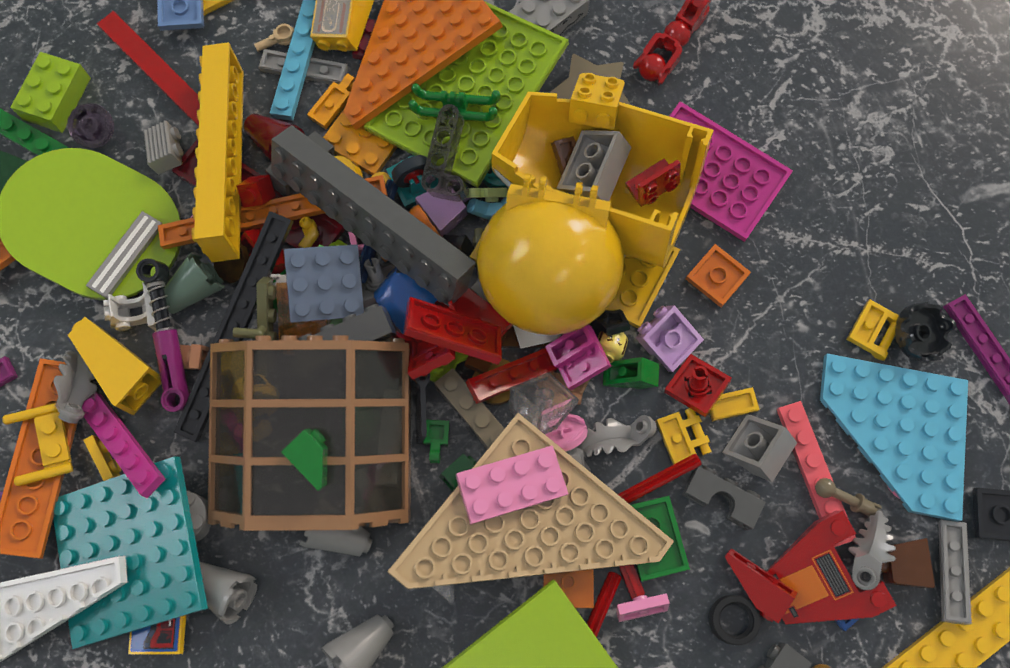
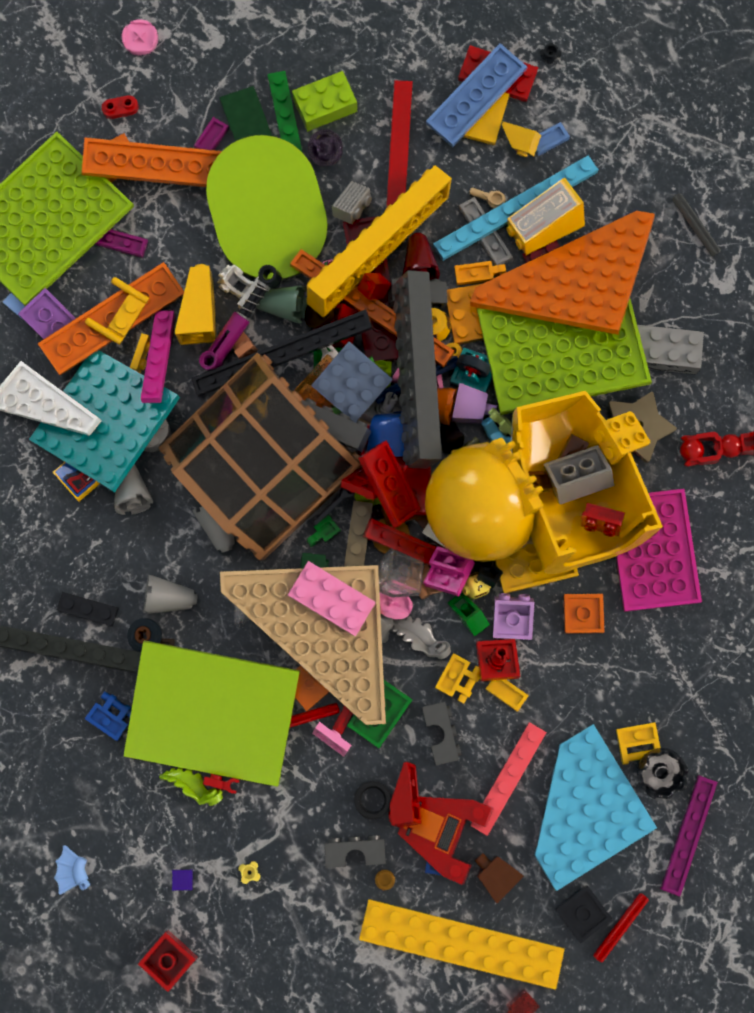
camera: 50 degrees right, 5 degrees up
(73, 387) = (165, 298): light grey plant -> none
(124, 255) = (266, 247): light grey tile -> none
(265, 313) = (303, 366): olive plate -> none
(309, 456) = (242, 471): green slope -> none
(310, 232) = (379, 341): yellow arm -> none
(448, 152) = (502, 377): clear smoke beam -> none
(459, 100) = (539, 352): green piece -> none
(660, 478) = (417, 685): red axle -> none
(760, 447) = (493, 730): light grey slope -> none
(826, 488) = (501, 790): dark tan pin -> none
(872, 551) = (484, 847): light grey plant -> none
(954, 572) = (519, 911): light grey tile -> none

